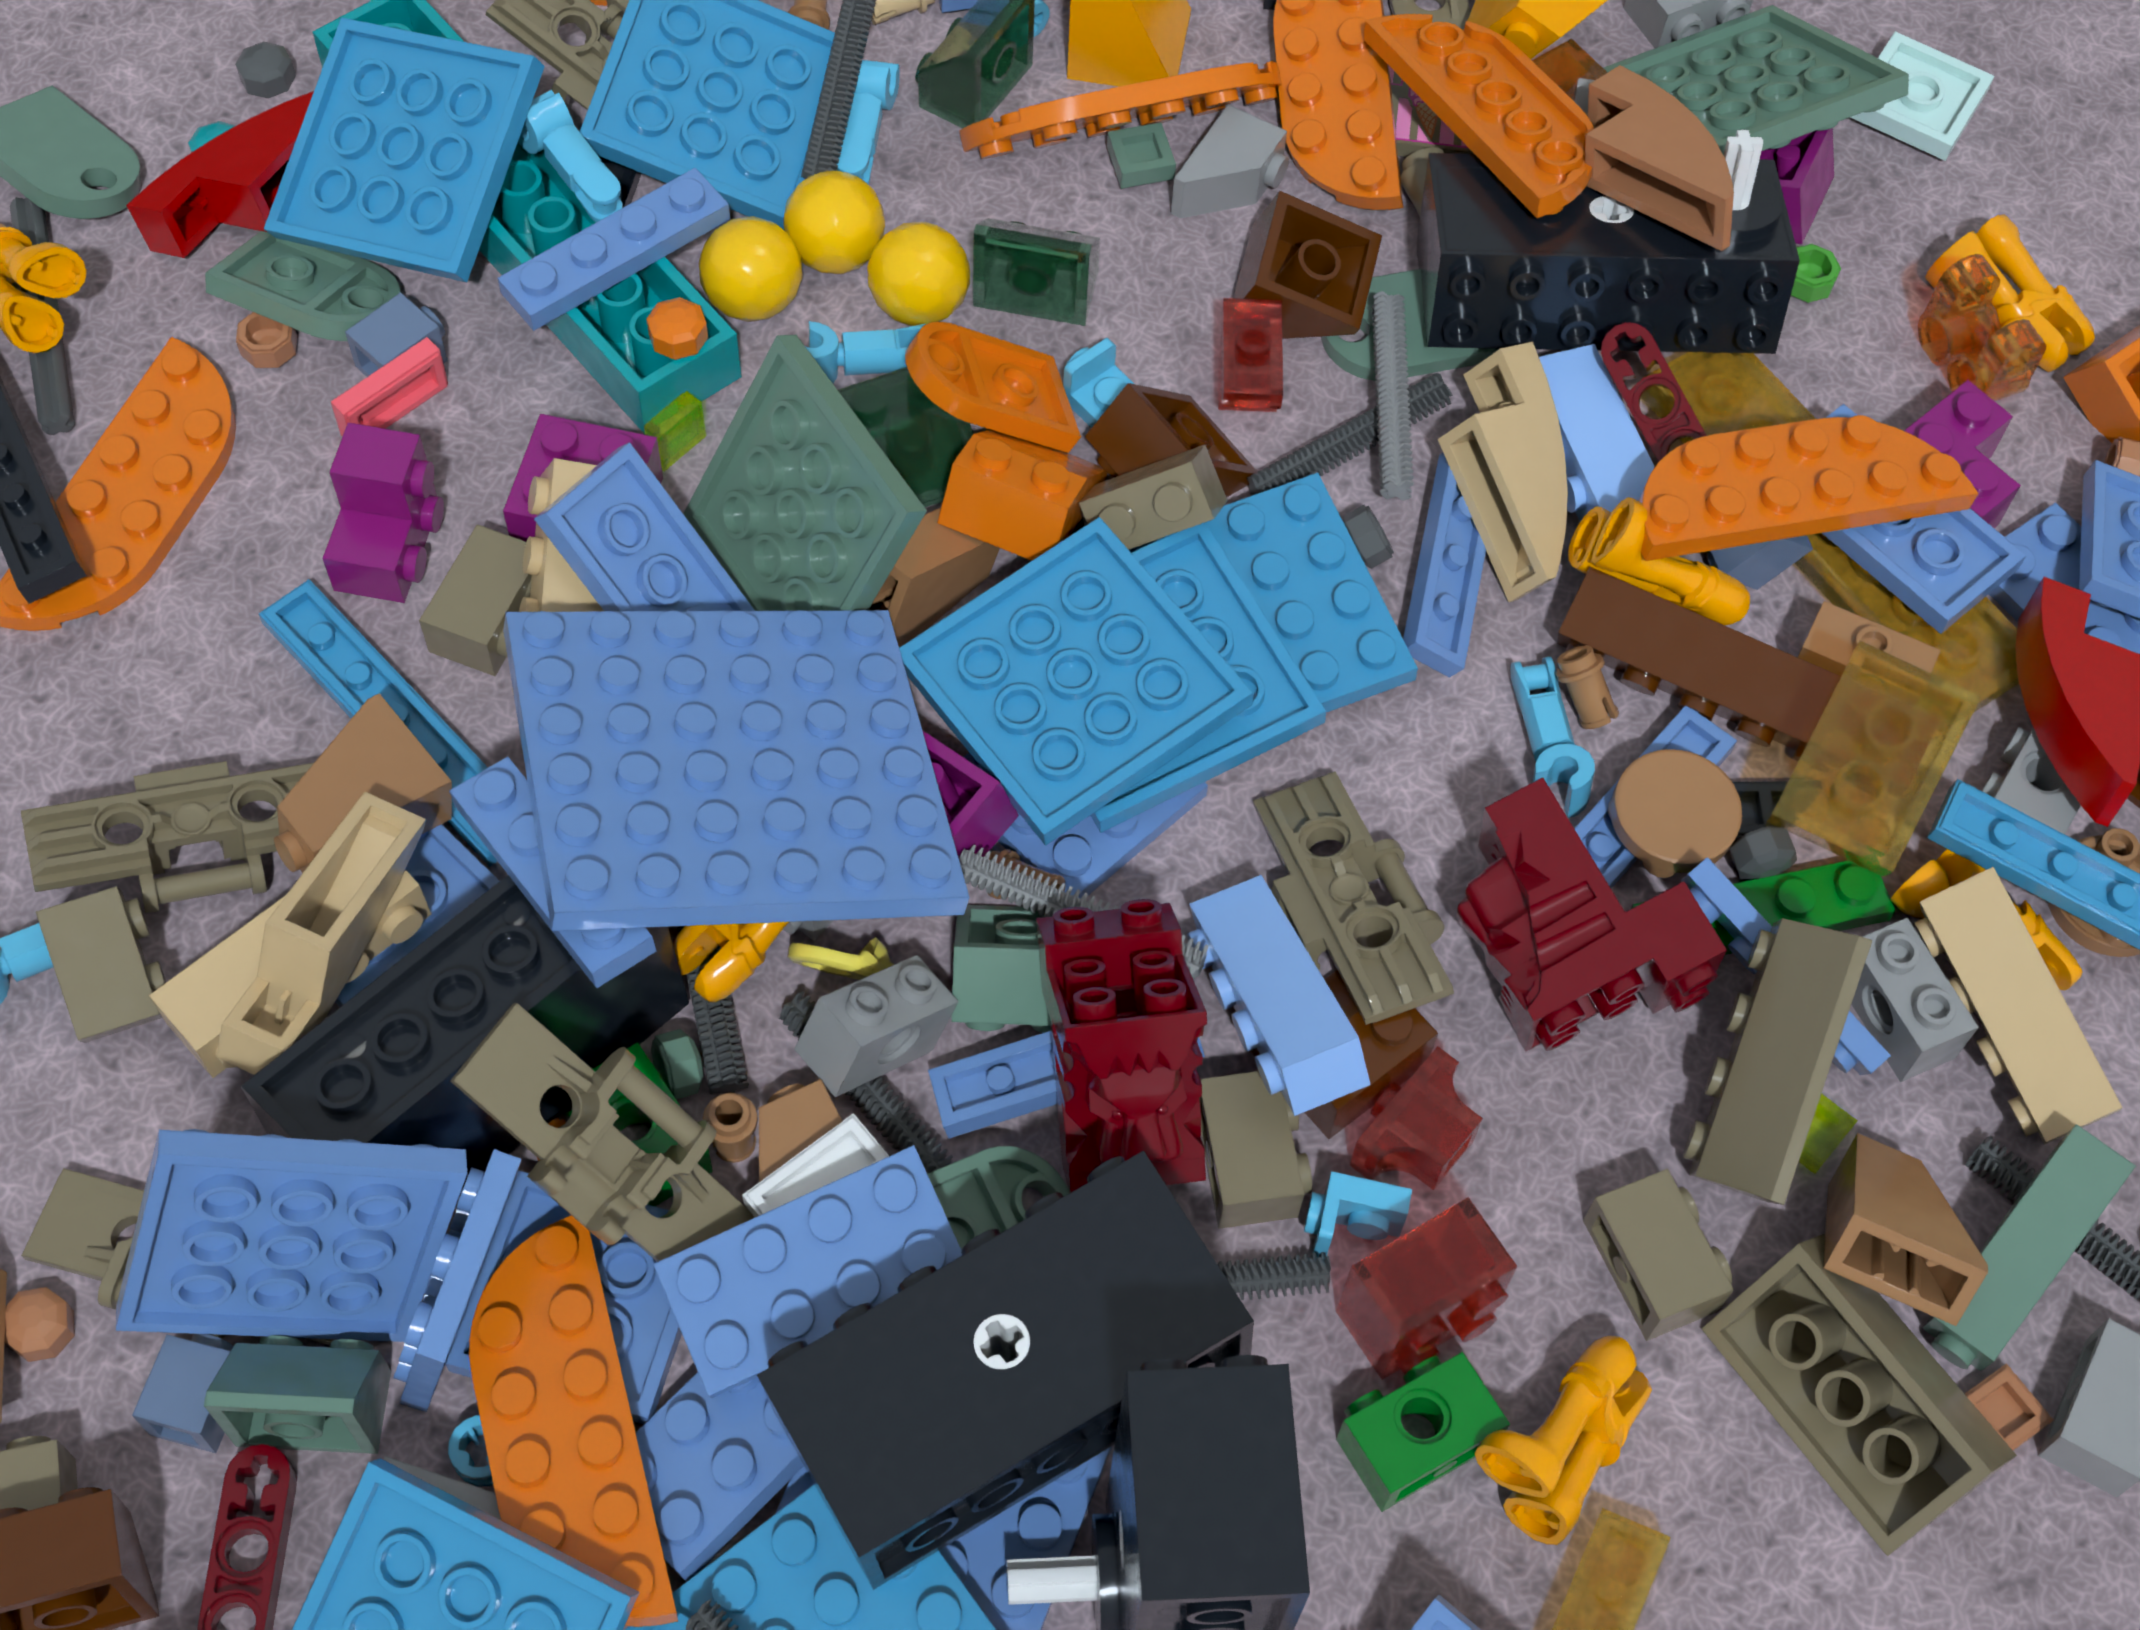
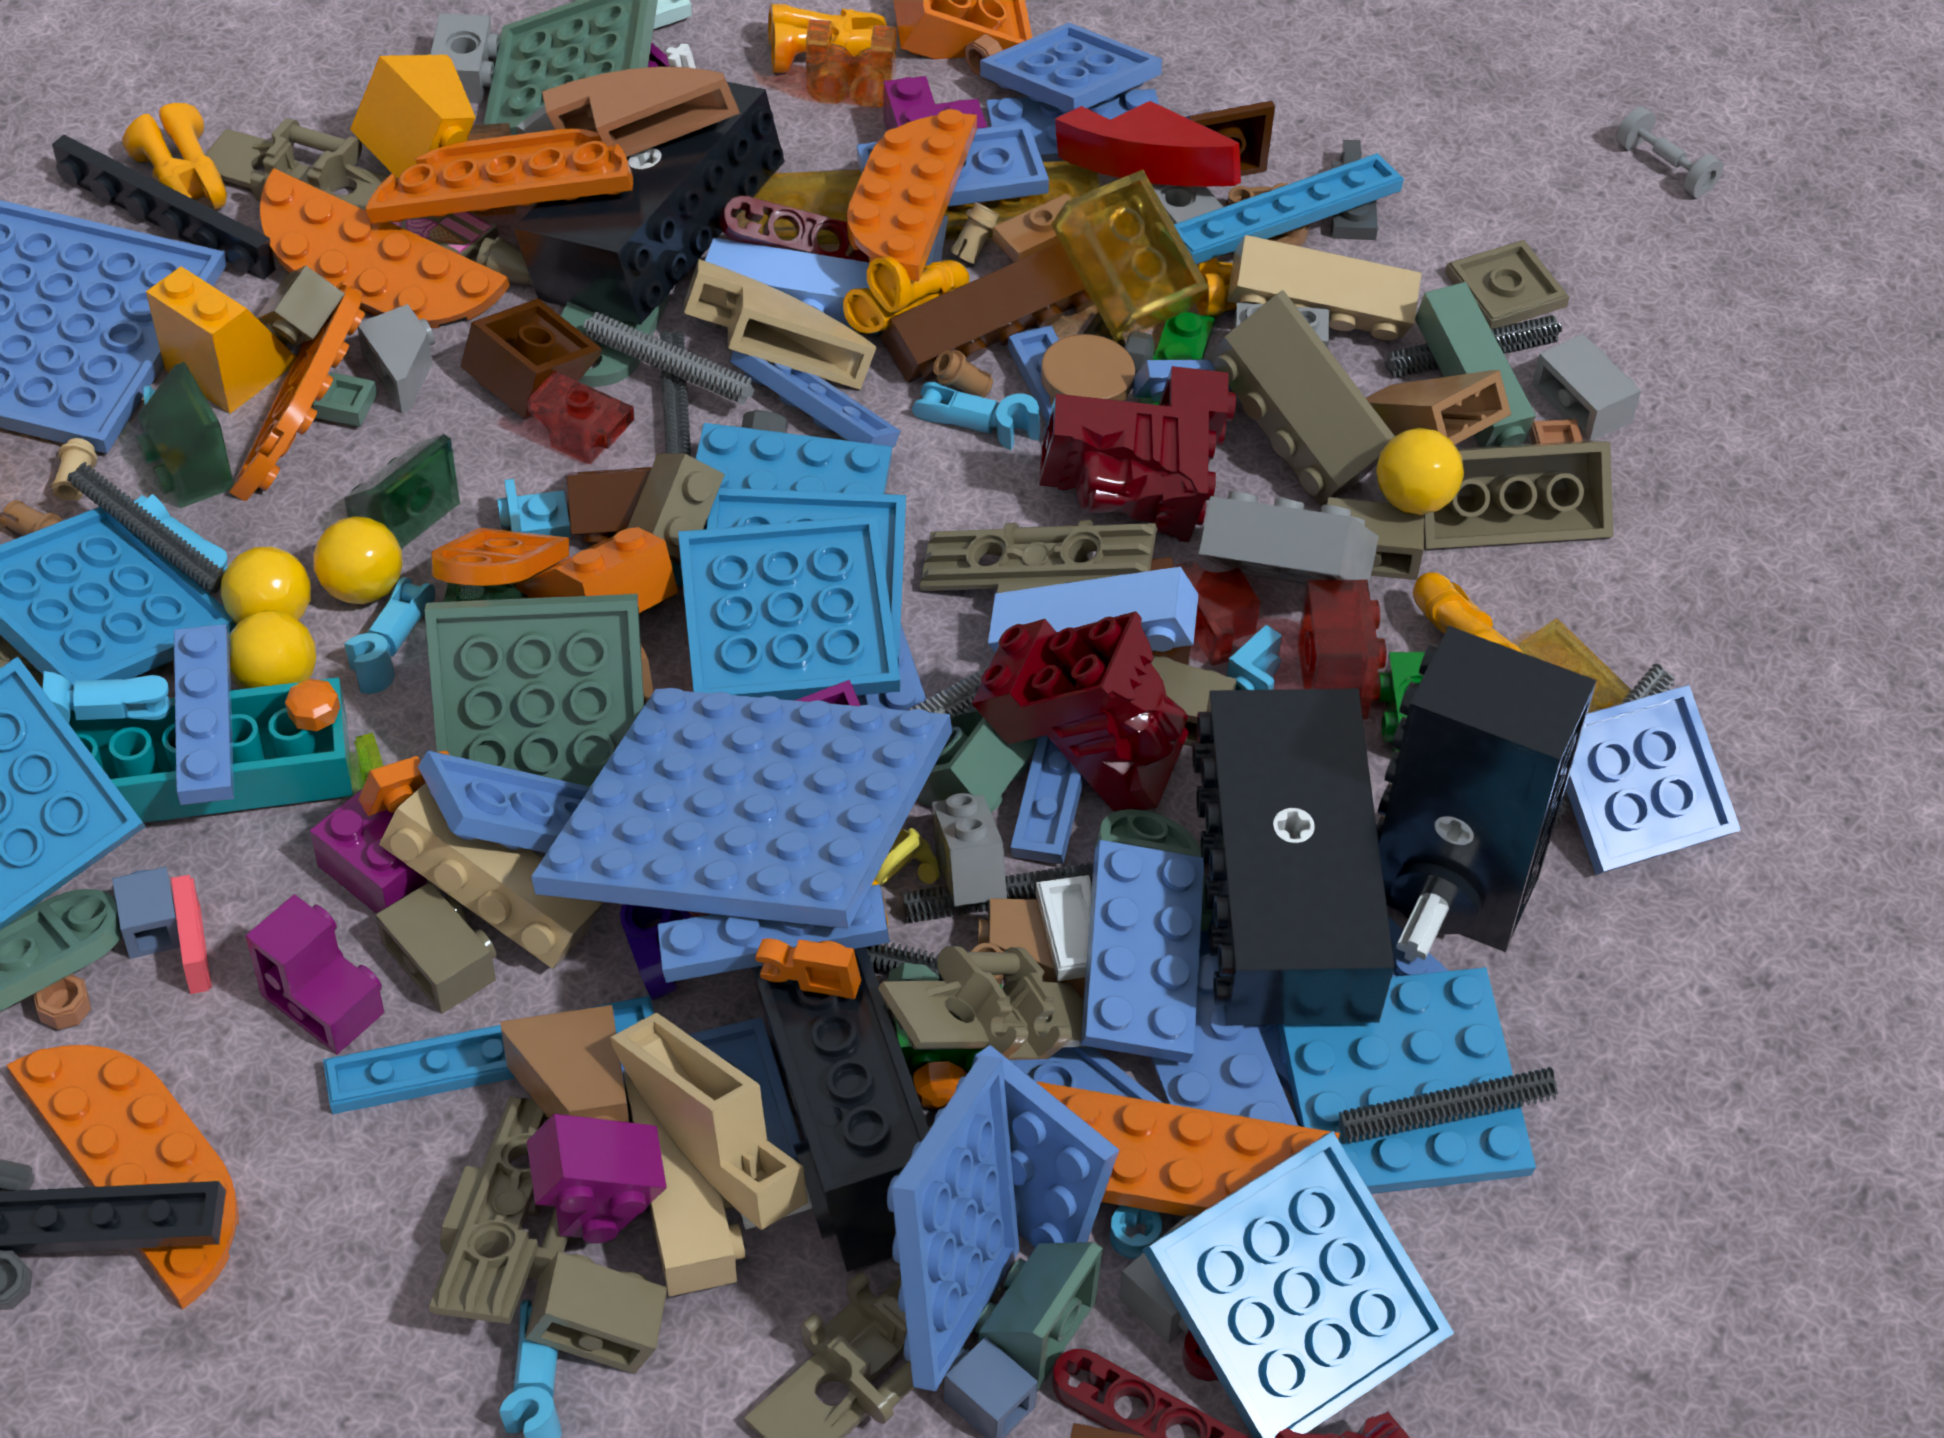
camera: 60 degrees left, 10 degrees down
(212, 863) = (595, 1173): none -> magenta brick
(511, 936) = (816, 966): none -> orange plate
(597, 440) = (391, 785): none -> orange plate
(1203, 41) = (300, 306): none -> dark tan brick
(1537, 1155) = (1287, 540): none -> light grey brick
(1751, 1252) = (1420, 471): none -> yellow piece
(1835, 585) = (975, 232): none -> tan pin

